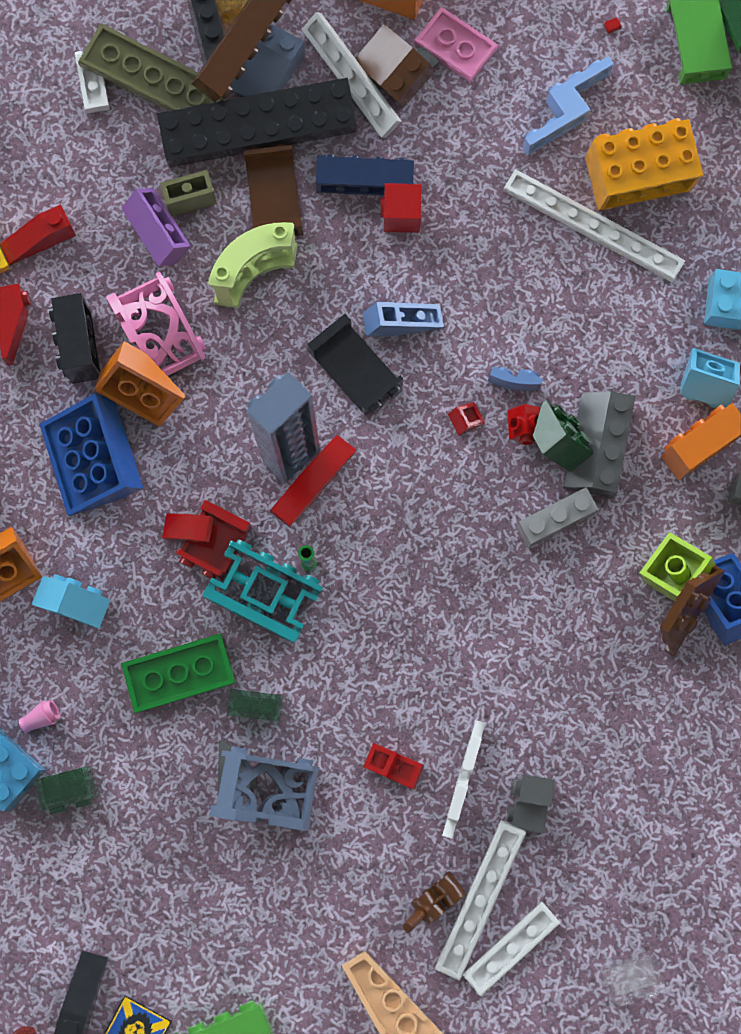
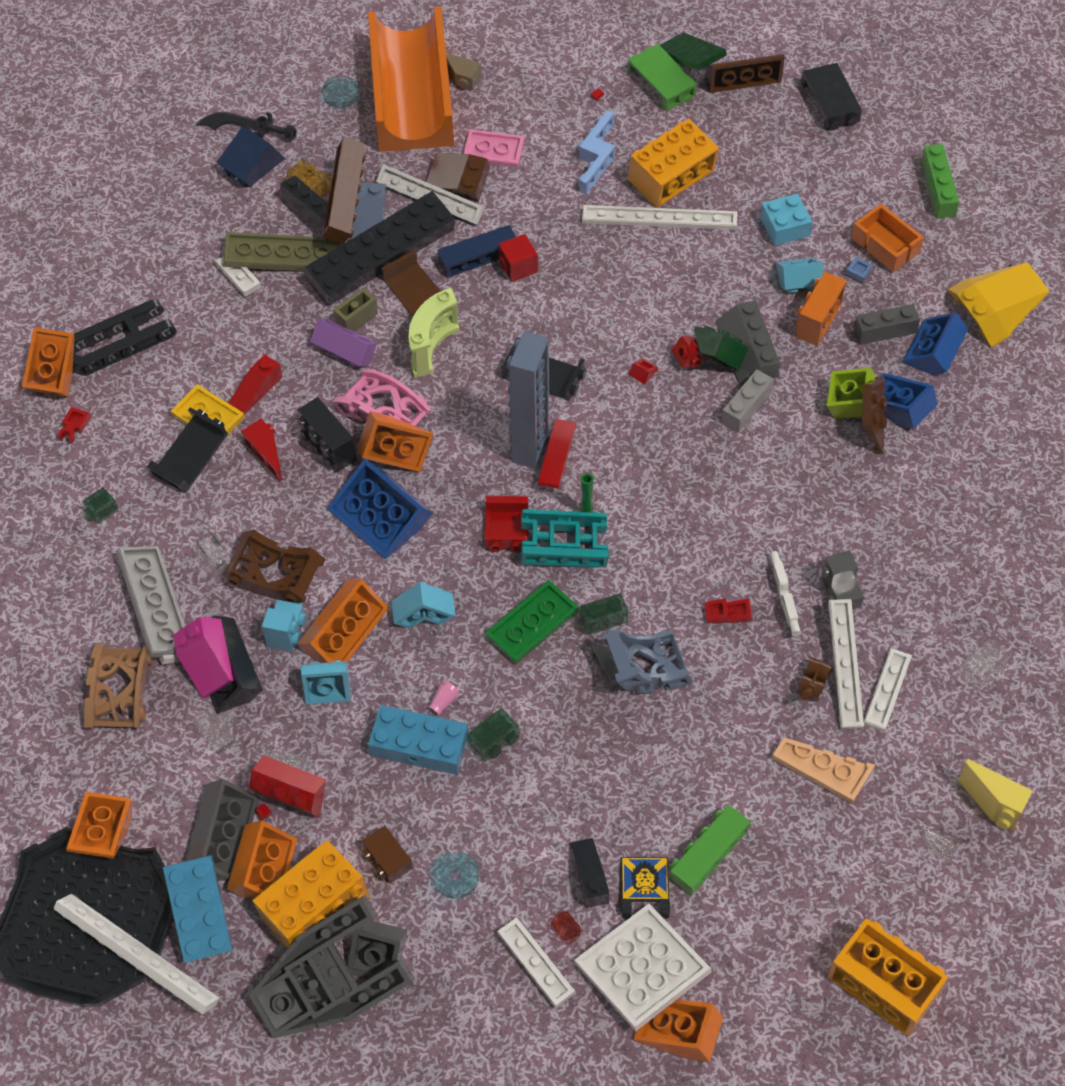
camera: 25 degrees left, 20 degrees down
(187, 527) = (483, 520): red slope -> none
(394, 319) = (560, 325): medium blue slope -> none
(525, 380) = (671, 328): medium blue slope -> none

